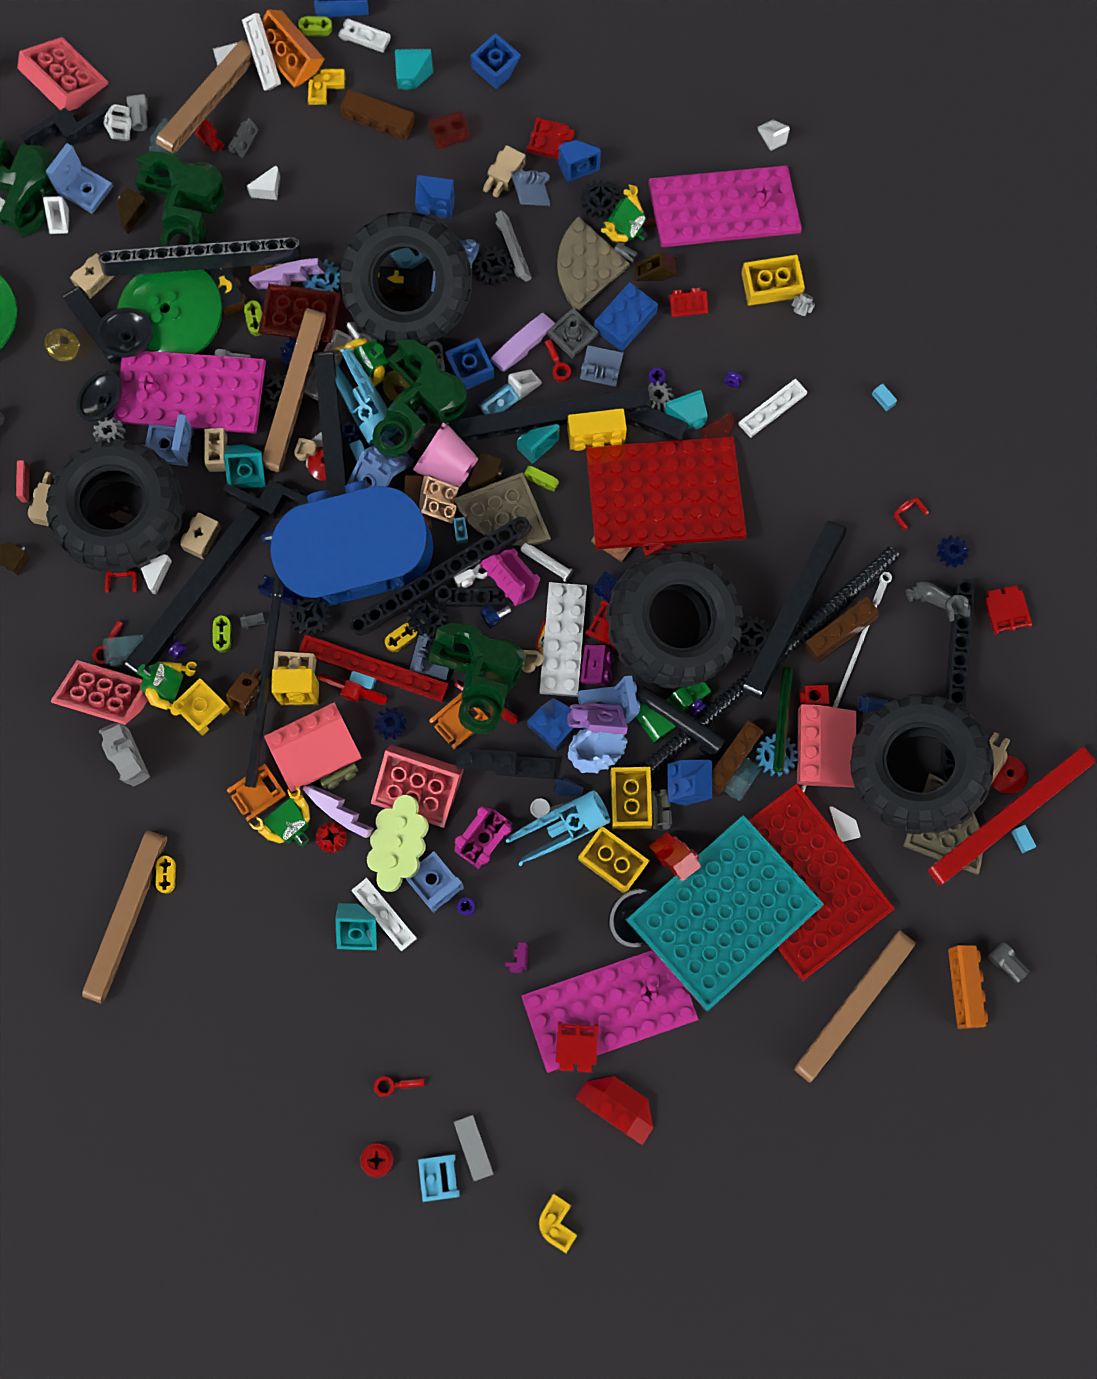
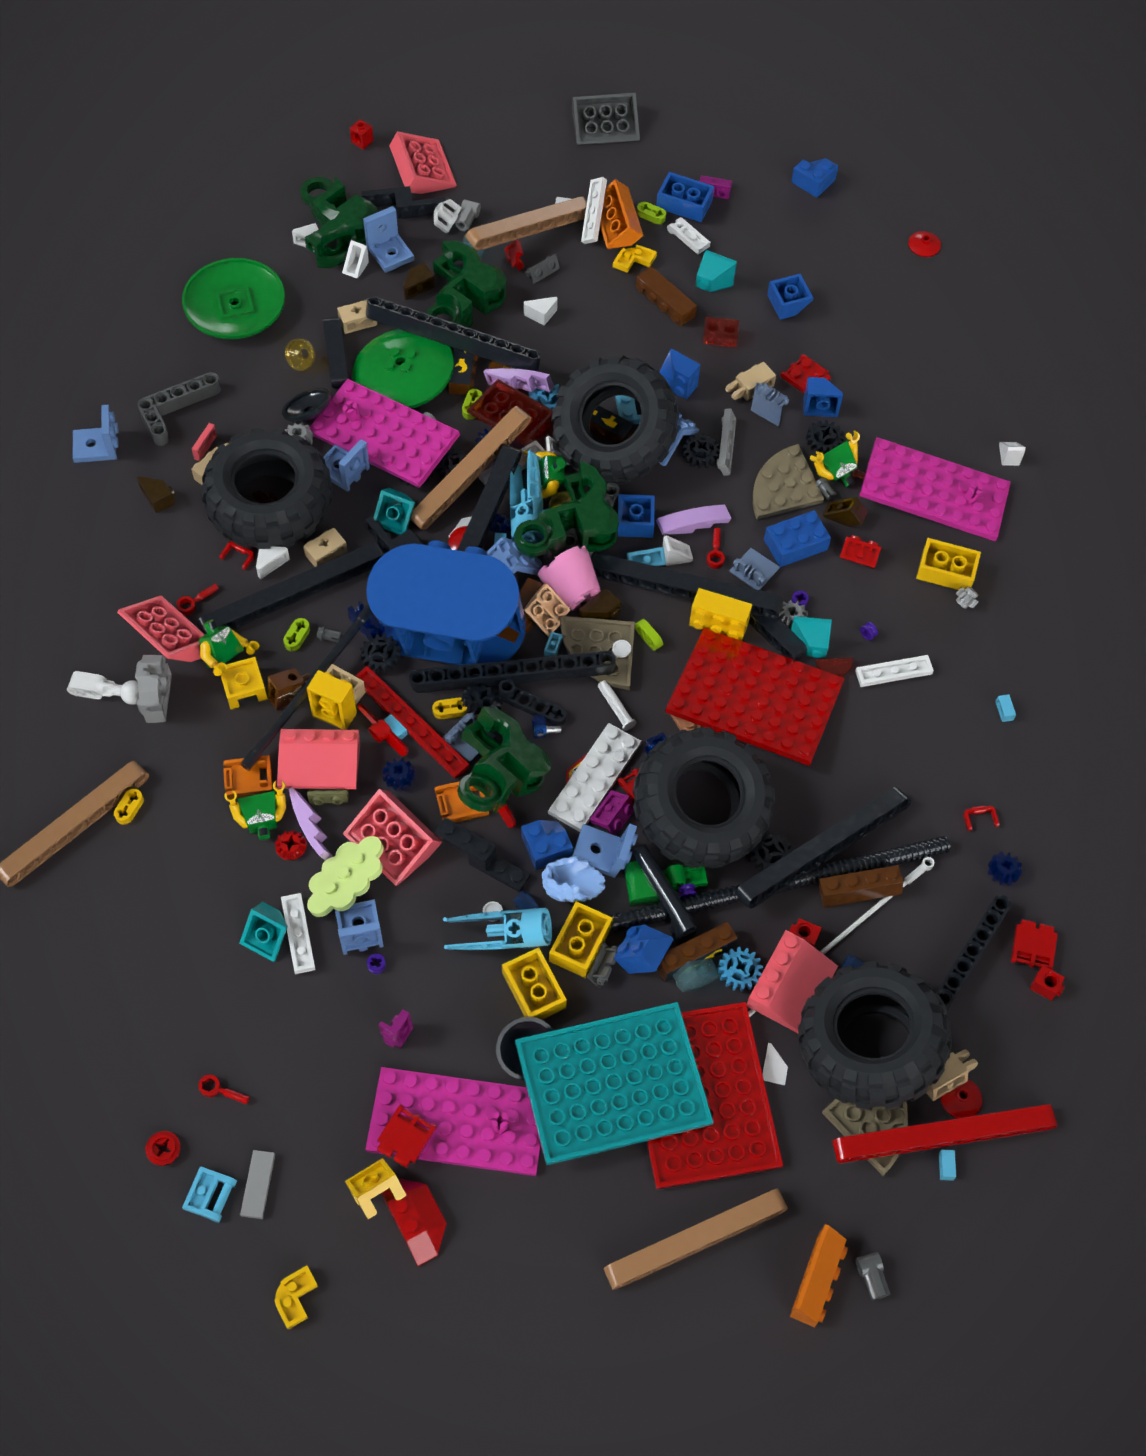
camera: 25 degrees right, 15 degrees down
(70, 776) = (96, 686): none -> white beam
(119, 648) = (202, 603): clear light blue slope -> none
(124, 324) = (355, 364): black dish -> none
(178, 650) = (251, 629): dark purple bush -> none
(215, 444) = (379, 480): tan brick -> none
(305, 449) = (455, 521): tan tile -> none
(466, 578) = (538, 685): white plate -> none
(475, 829) = (421, 899): dark pink piece -> none
(512, 576) = (576, 700): dark pink piece -> none
(525, 505) = (621, 648): none -> white piece
(533, 659) = (554, 780): tan tile -> none
(538, 441) = (663, 603): teal slope -> none
(572, 327) = (746, 528): dark grey plate -> none
(572, 1101) = (372, 1182): none -> yellow panel
(598, 718) = (585, 850): medium lavender plate -> none
(676, 855) = (593, 1007): red arch -> none
(782, 722) = (761, 938): dark green axle -> none
(935, 595) = (966, 896): dark grey piece -> none
(1026, 642) = (1040, 987): none -> red brick

